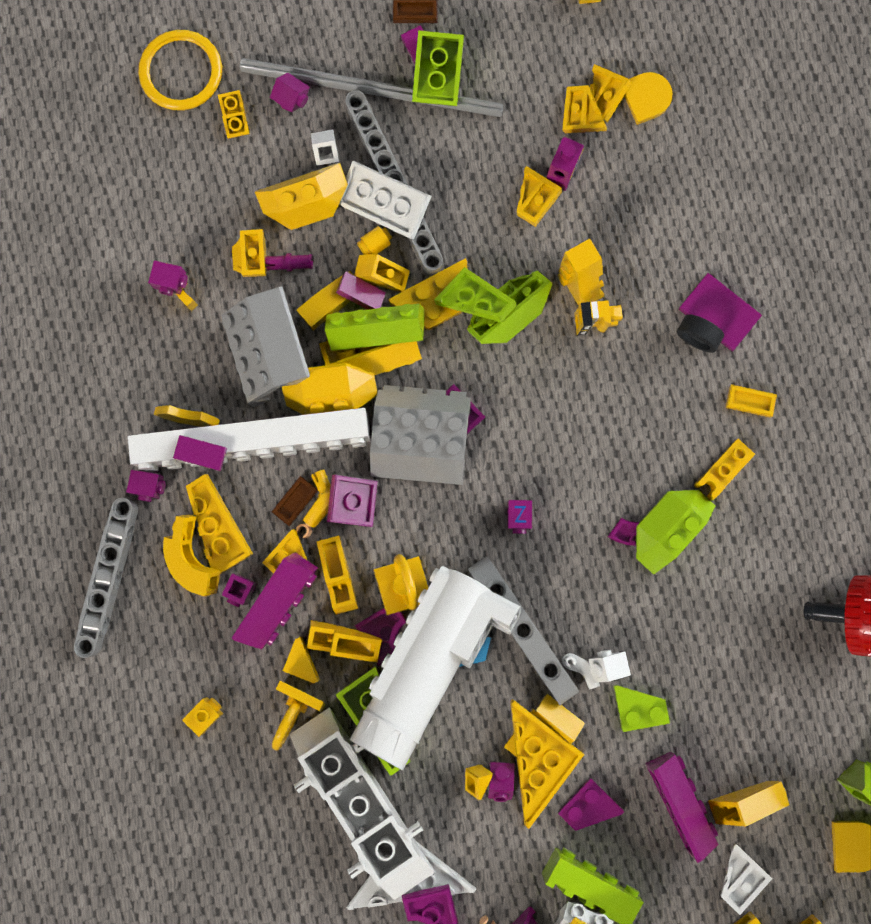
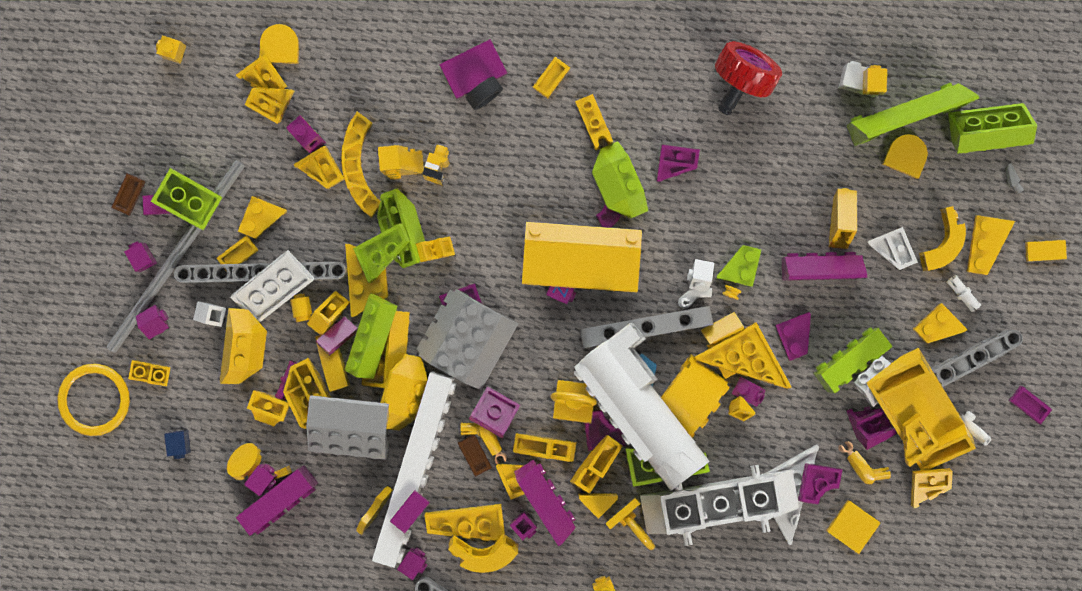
camera: 70 degrees left, 5 degrees up
(155, 307) = (281, 497): none -> magenta brick
(169, 176) = (177, 444): none -> dark blue brick
(180, 252) = (244, 461): none -> yellow tile
(295, 275) = (300, 384): none -> yellow wedge
(354, 50) = (140, 256): none -> magenta brick
(405, 151) = (238, 252): none -> yellow tile
(452, 155) = (259, 217): none -> yellow wing
(471, 719) = (694, 394): none -> yellow cylinder
(503, 356) = (435, 249): none -> yellow slope
(554, 228) = (352, 165): none -> yellow tile
(569, 521) = (581, 257): none -> yellow slope
(605, 710) = (731, 292): none -> yellow bush
(724, 581) = (676, 160): none -> magenta wing

